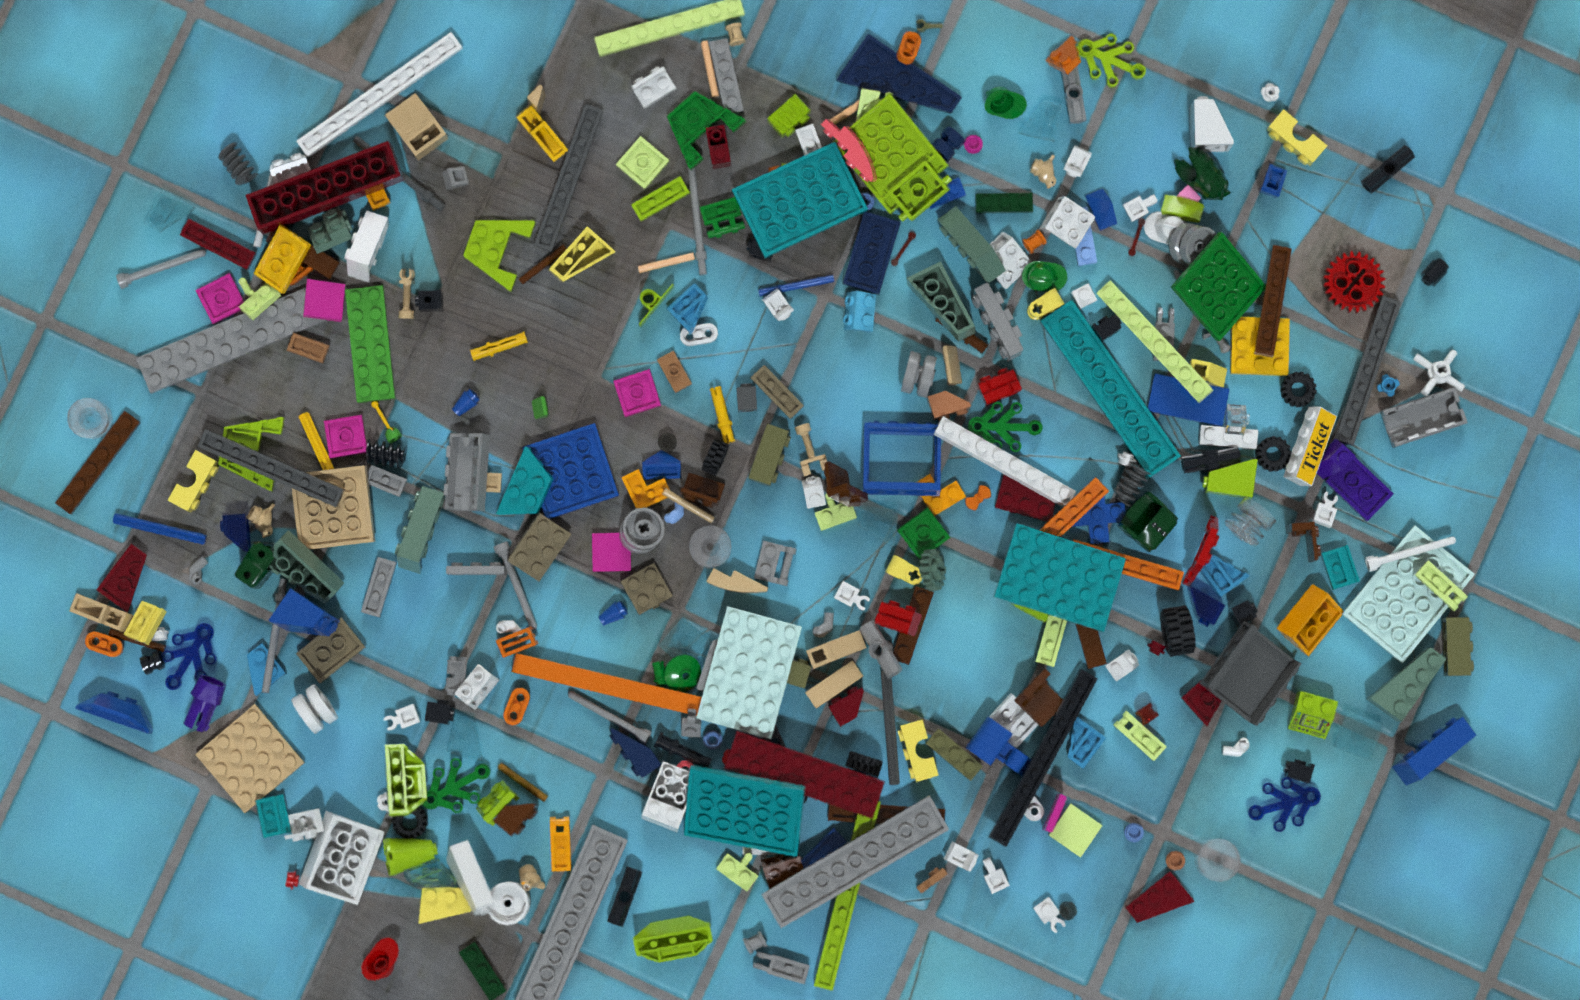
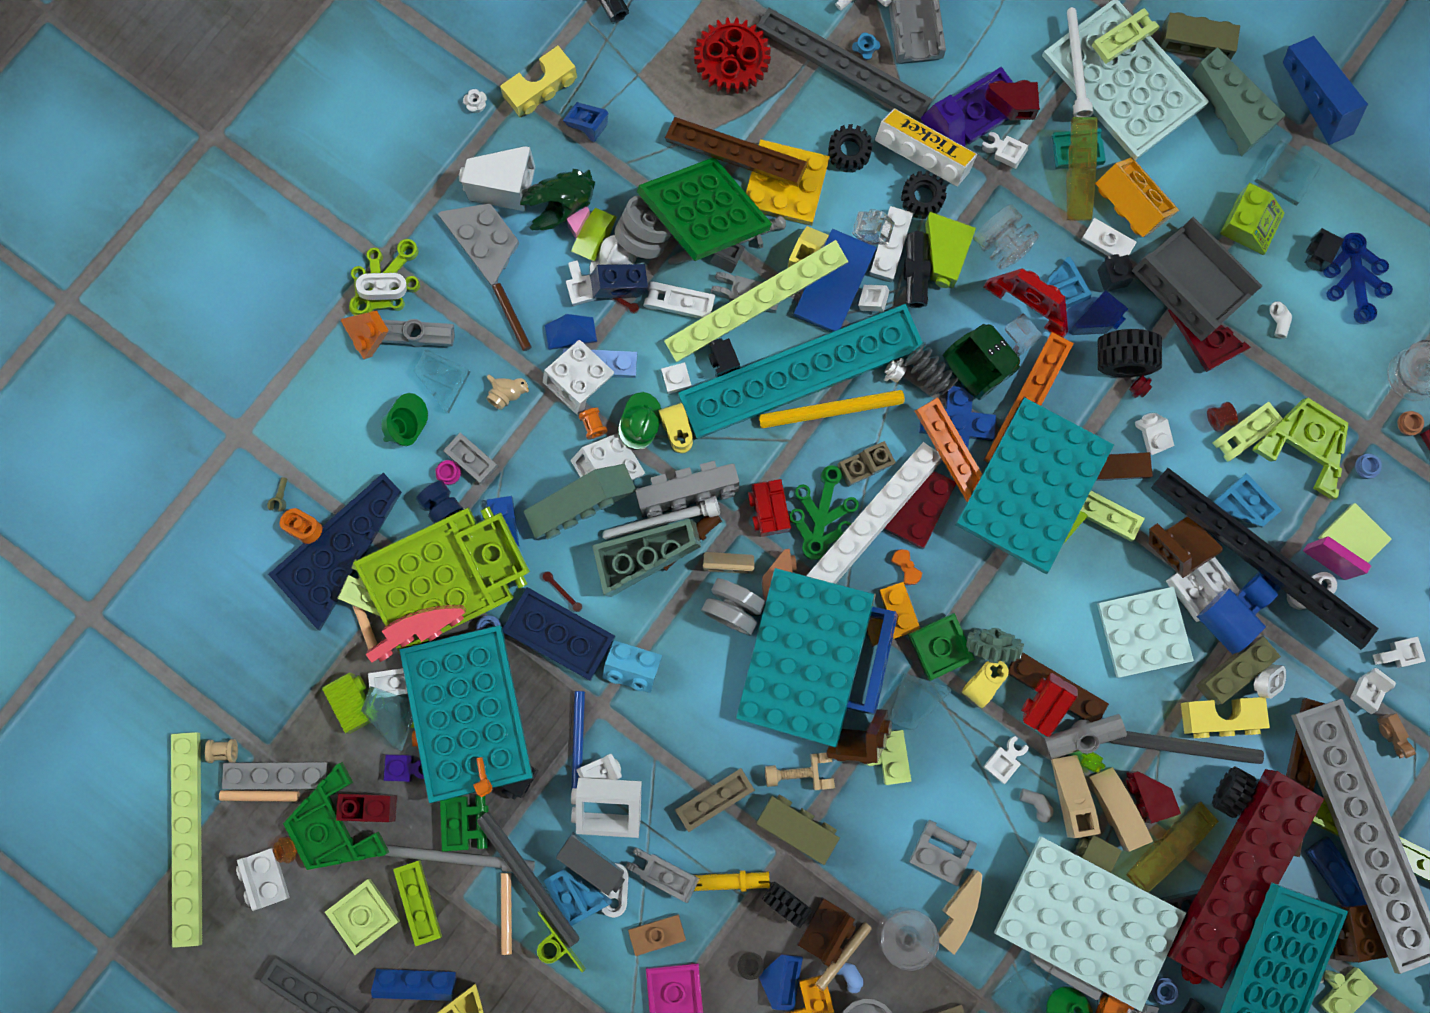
camera: 80 degrees left, 5 degrees down
(604, 210) = (413, 985): none -> blue plate
(676, 97) = (284, 850): none -> clear orange plate
(693, 271) = (528, 880): none -> dark grey axle
(714, 312) = (591, 864): none -> dark grey slope
(716, 367) = (665, 875): none -> light grey hinge
(746, 398) = (714, 843): dark grey brick -> none
(750, 164) = (401, 768): none -> dark purple plate
(751, 224) = (484, 786): none -> orange hand
(766, 314) = (607, 792): none -> white window
(786, 146) = (389, 715): none -> clear light blue wing
(813, 492) = (858, 780): white bracket -> none
(814, 727) = (1172, 847): none -> clear yellow slope
(863, 659) = (1092, 762): none -> clear neon green plate
(893, 432) = (805, 657): none -> teal plate
(951, 779) = (1270, 681): none -> white plate
(968, 683) = (1145, 632): none -> light aqua plate
(987, 158) = (470, 458): none -> light grey plate
(988, 340) = (707, 507): none -> white piece
(1004, 203) = (533, 450): dark green plate -> none
(1049, 452) = (866, 463): none -> dark tan slope
(1077, 161) = (503, 347): white bracket -> none
(1086, 417) = (831, 409): none -> yellow axle
(1103, 162) = (511, 316): none -> reddish brown bar
(1104, 59) = (381, 286): none -> white plate
(1145, 286) = (679, 300): none -> white plate
(1147, 235) = (619, 281): none -> dark blue brick
(1149, 786) = (1315, 434): none -> lime wing
(1161, 125) = (482, 237): none -> light grey wing
(1177, 549) = (1023, 333): none -> clear panel
(1180, 431) = (873, 298): none -> white plate
(1186, 315) = (728, 258): none -> dark grey slope
(1269, 604) = (1107, 239): none -> white plate
(1311, 532) = (1040, 170): reddish brown bracket -> none
(1321, 571) = (1082, 168): none -> clear yellow slope
(1365, 509) = (1015, 100): none -> dark red slope

